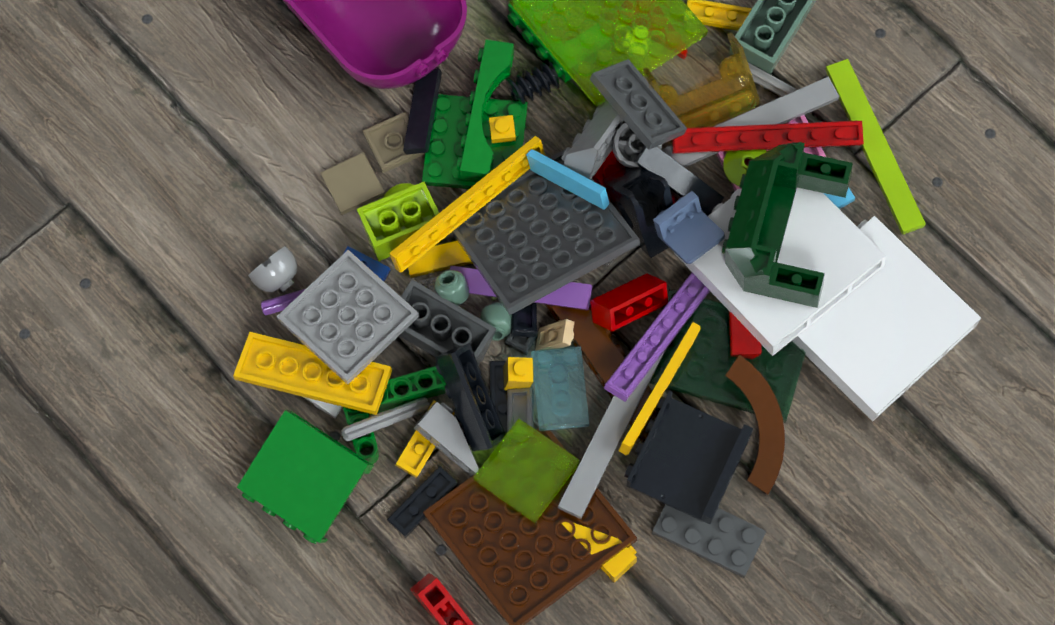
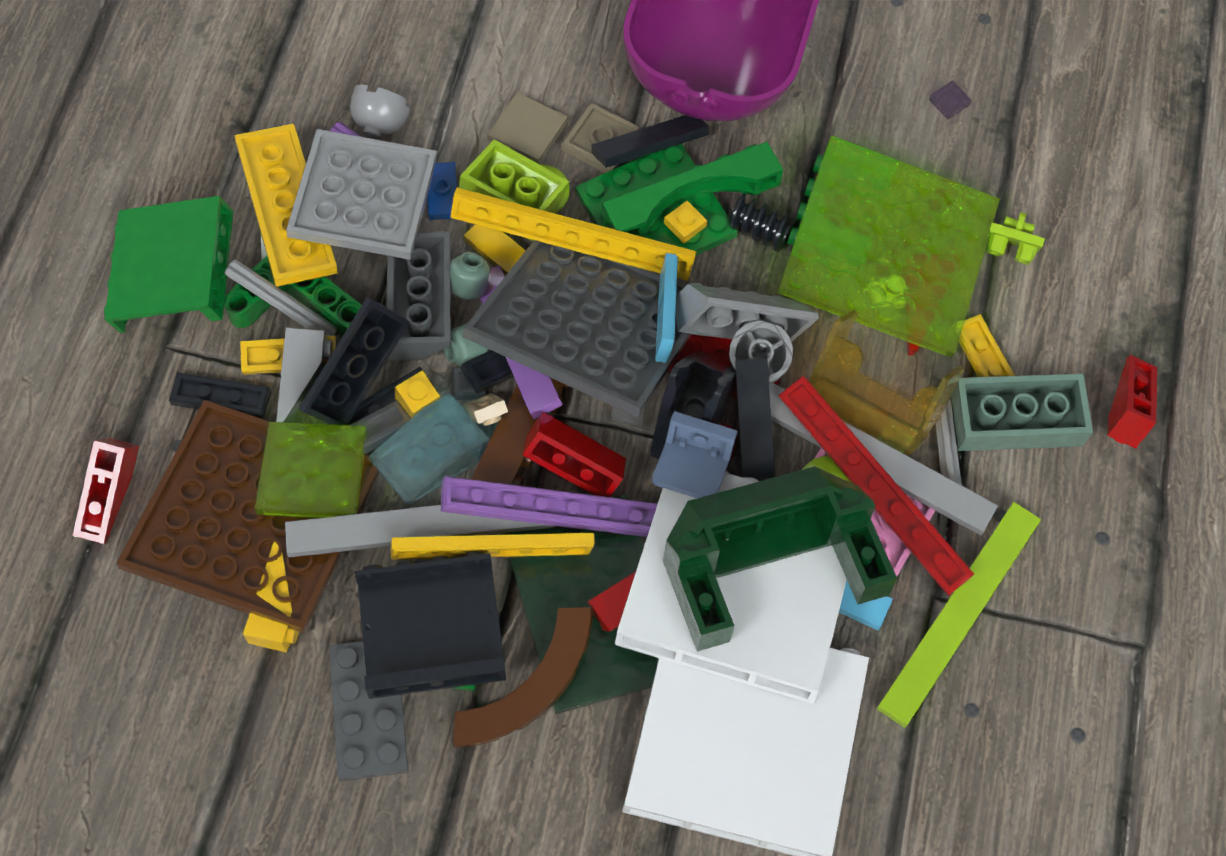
camera: 50 degrees right, 5 degrees down
(638, 104) = (800, 320): dark grey plate -> none

